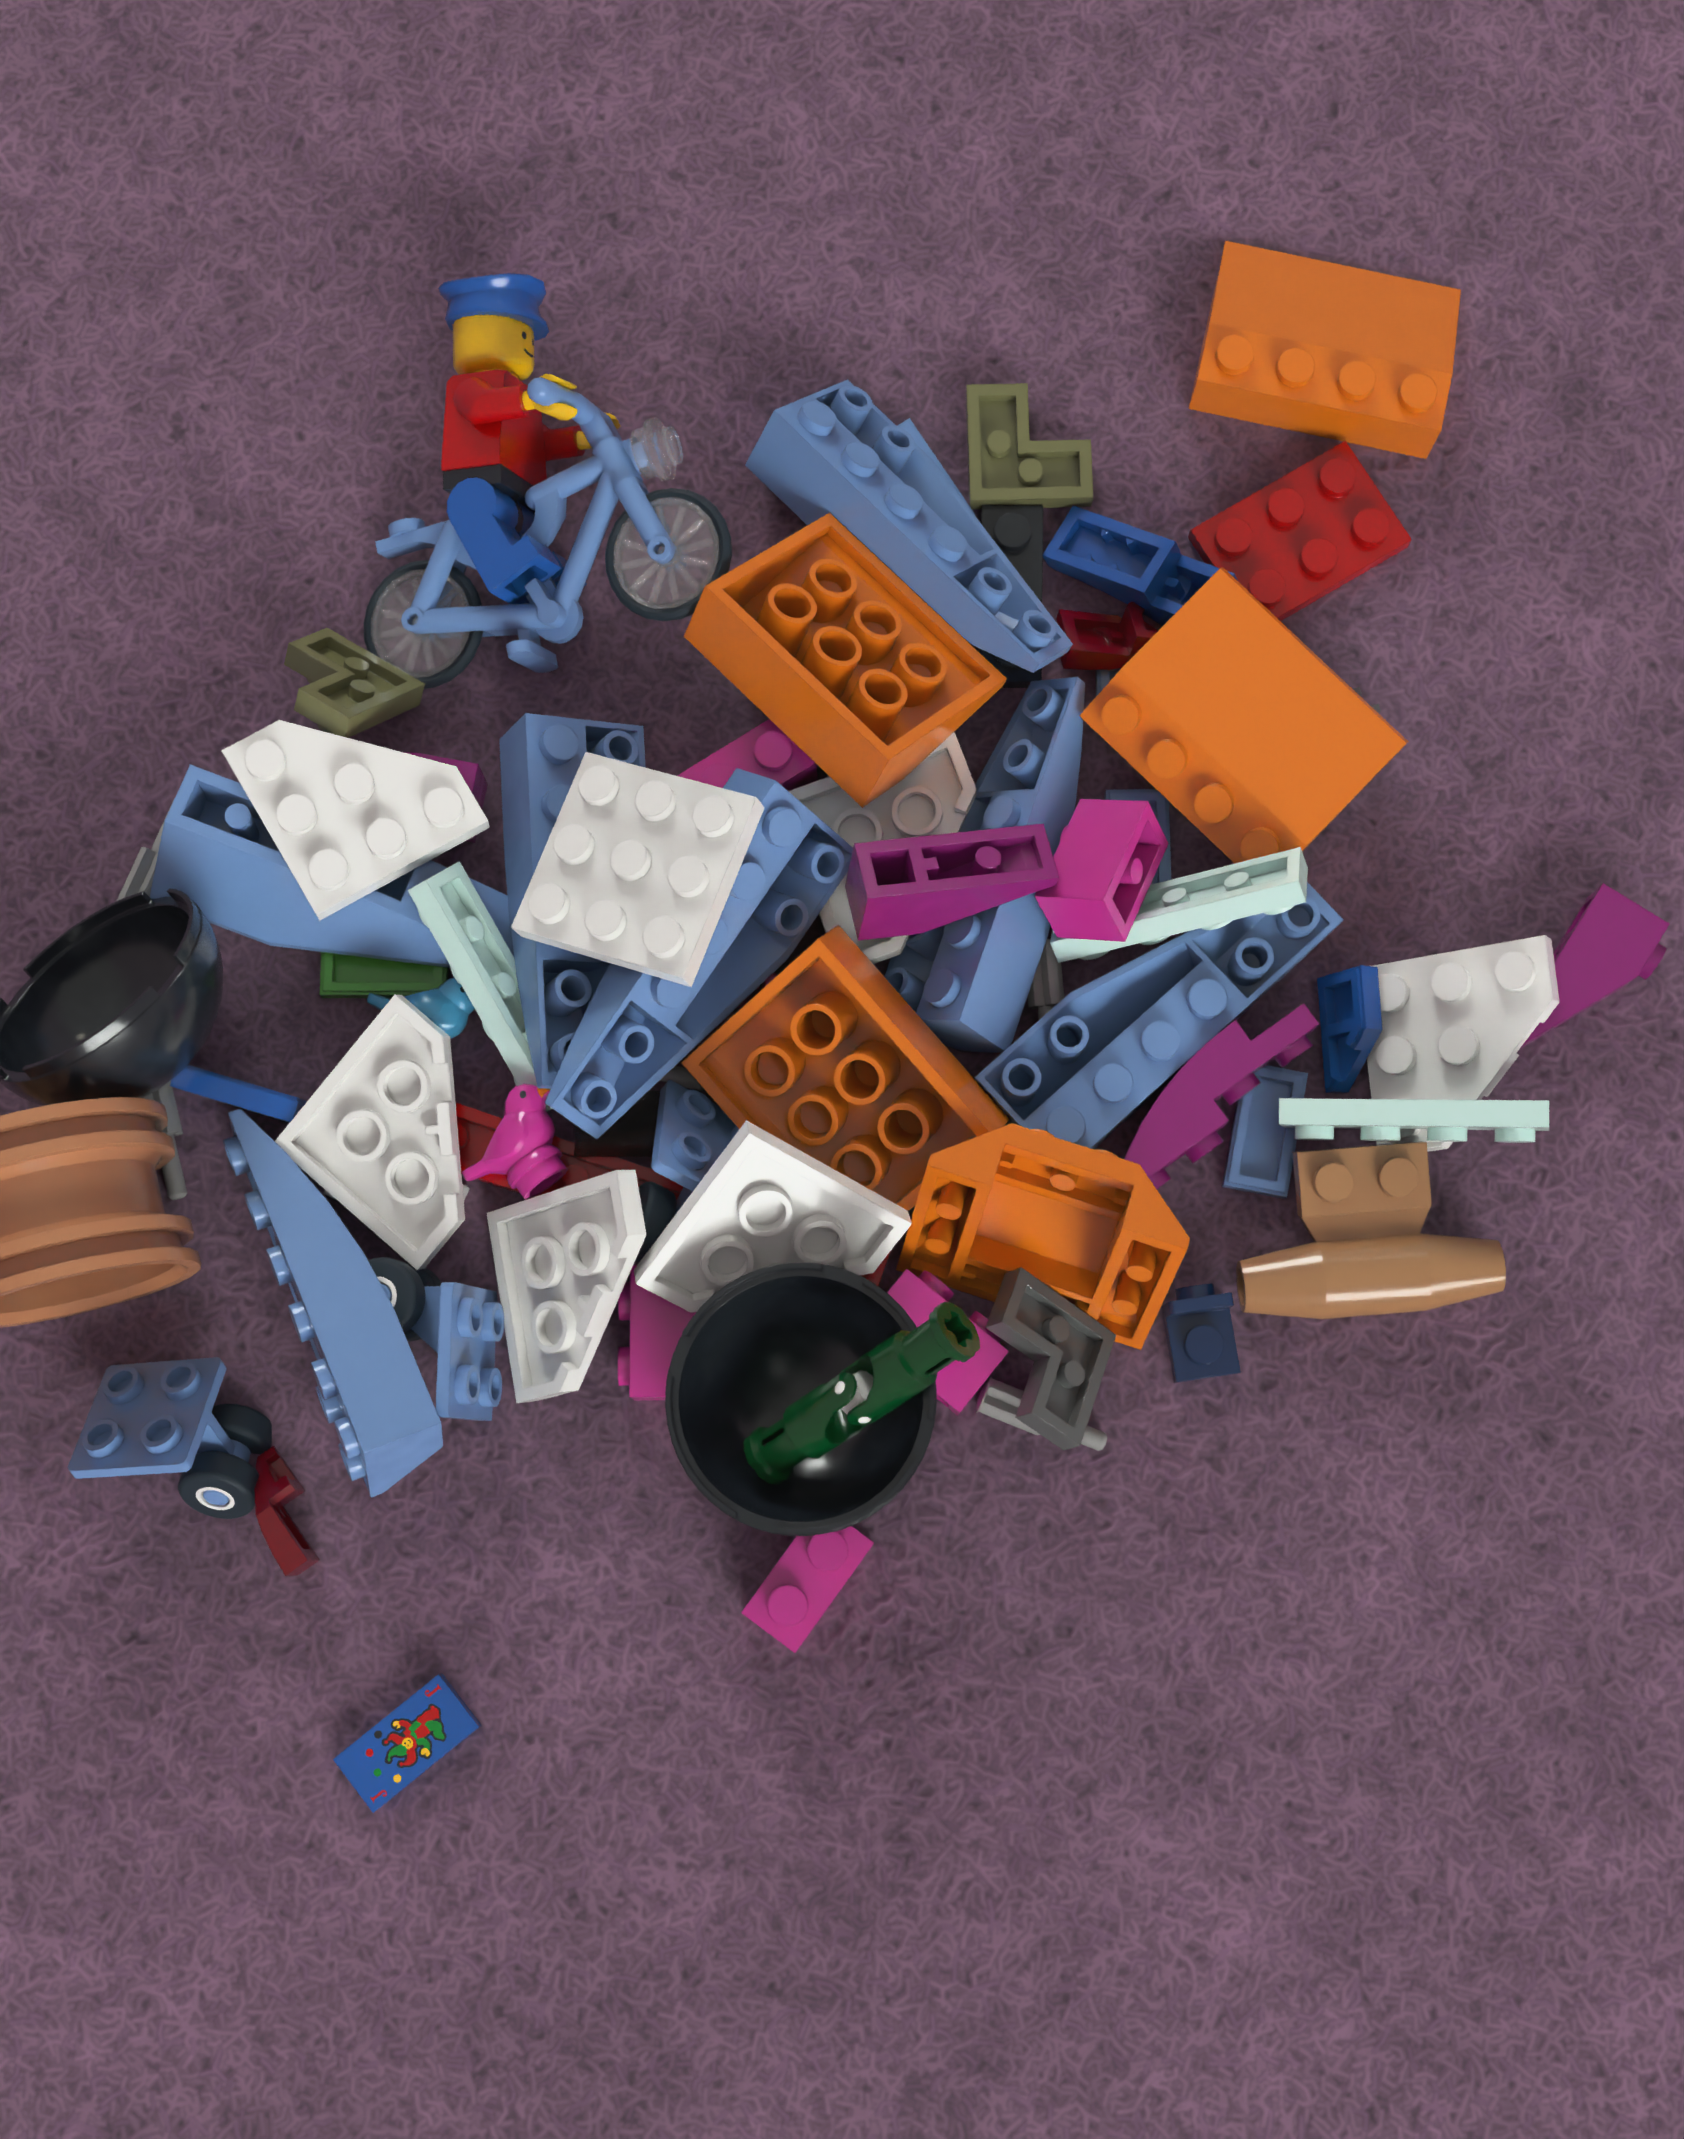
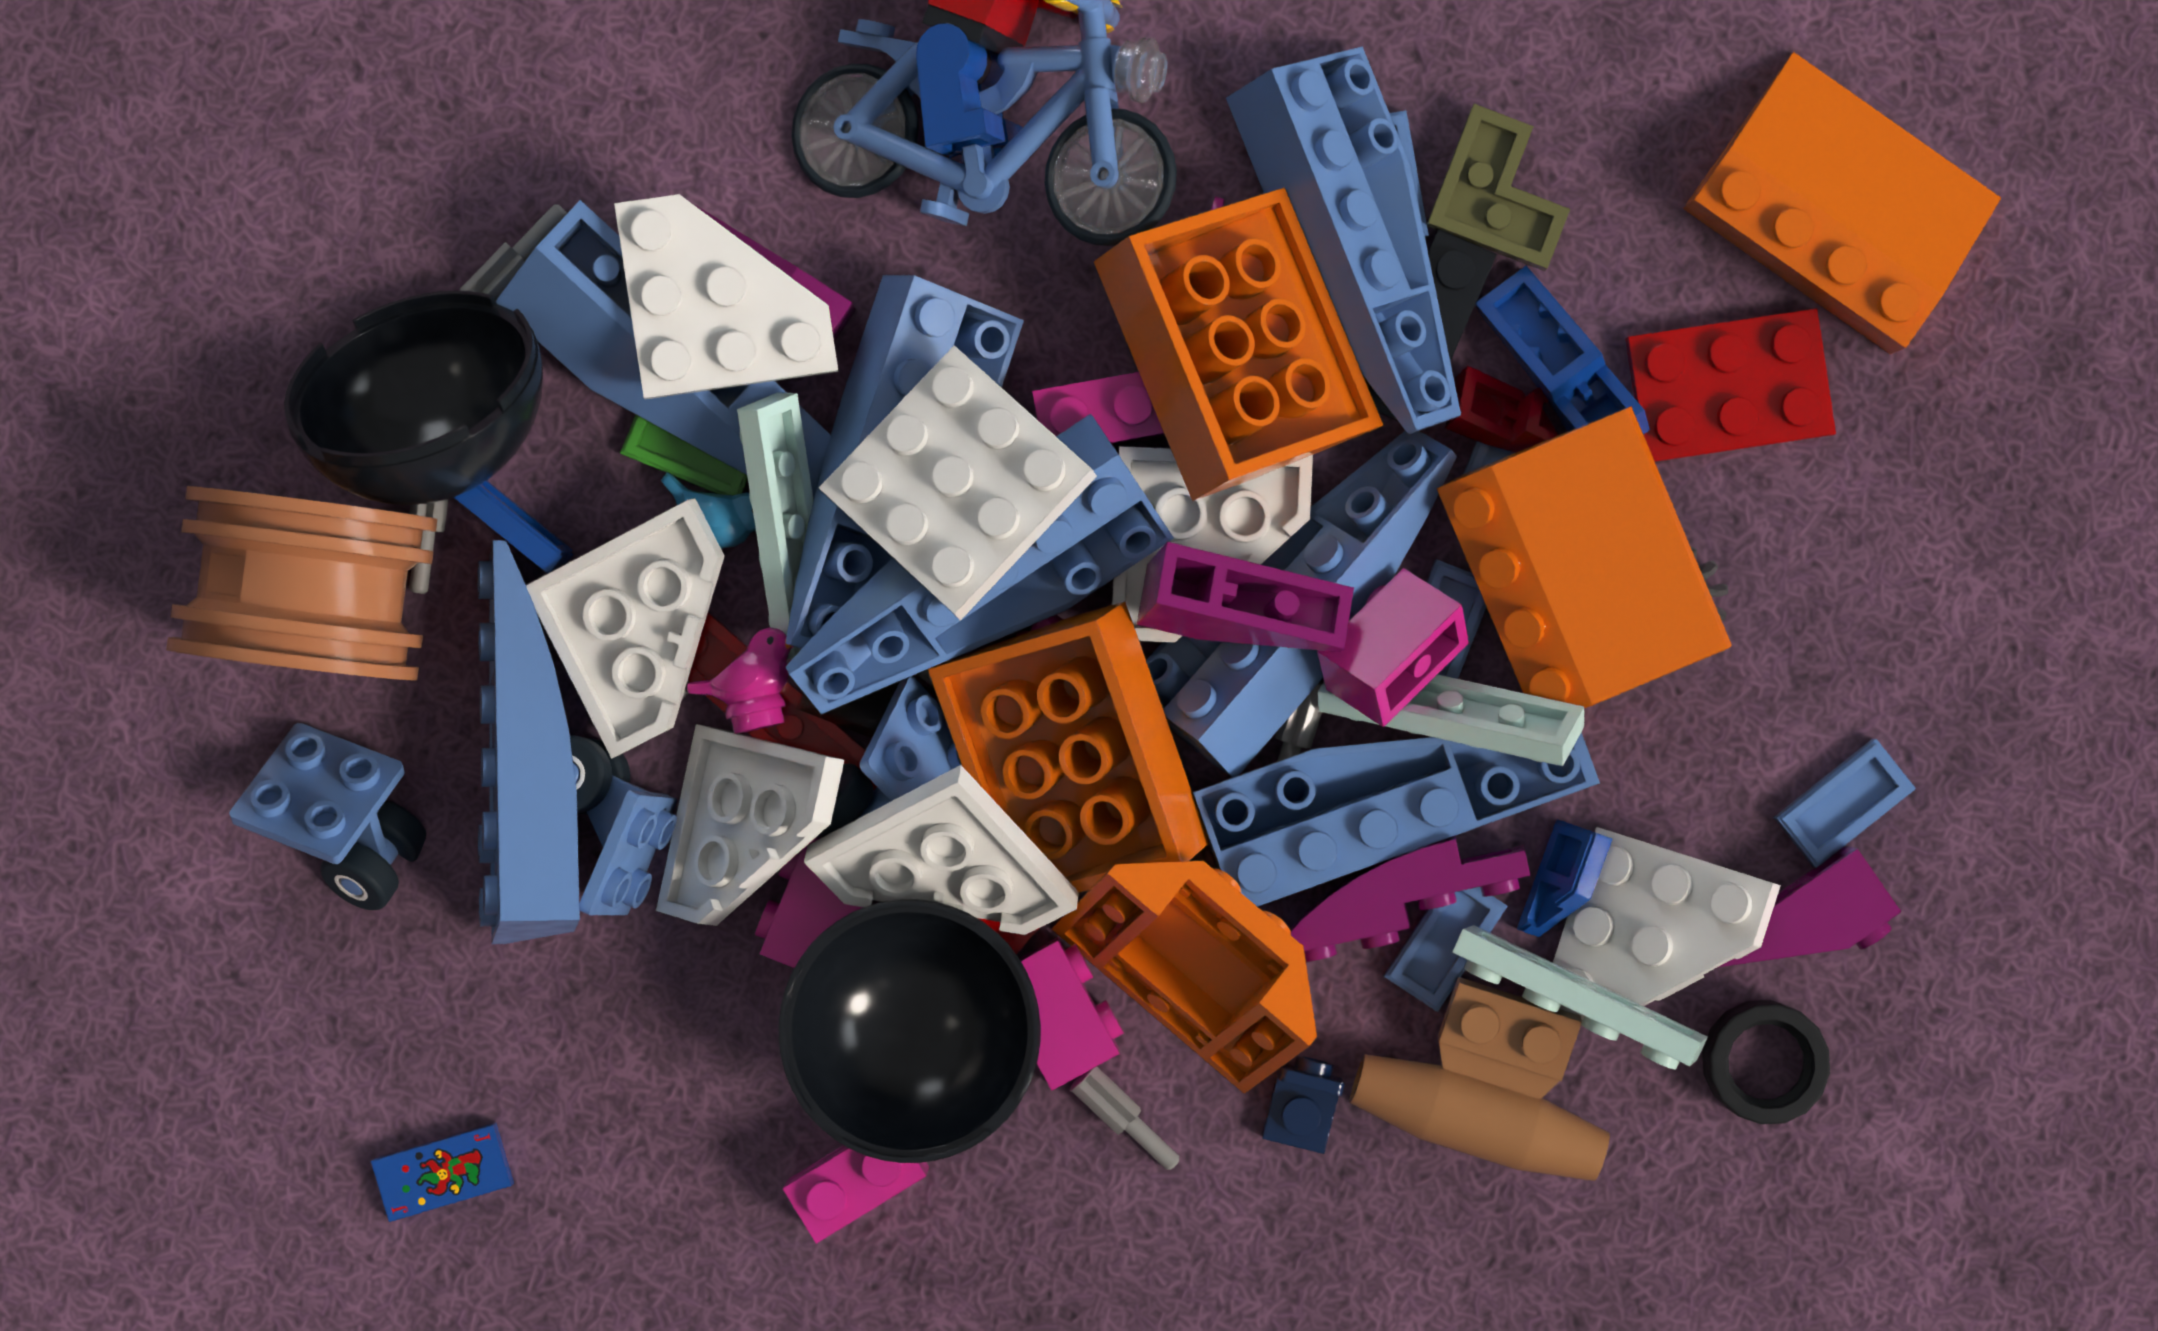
camera: 25 degrees right, 10 degrees up
(272, 1492) = (408, 898): dark red slope -> none
(348, 684) = (770, 169): olive plate -> none
(862, 1393) = (938, 1056): dark green piece -> none
(1066, 1351) = (1171, 1078): dark grey plate -> none
(1569, 858) = (1844, 803): none -> medium blue tile
(1652, 1095) = (1811, 1080): none -> black tyre

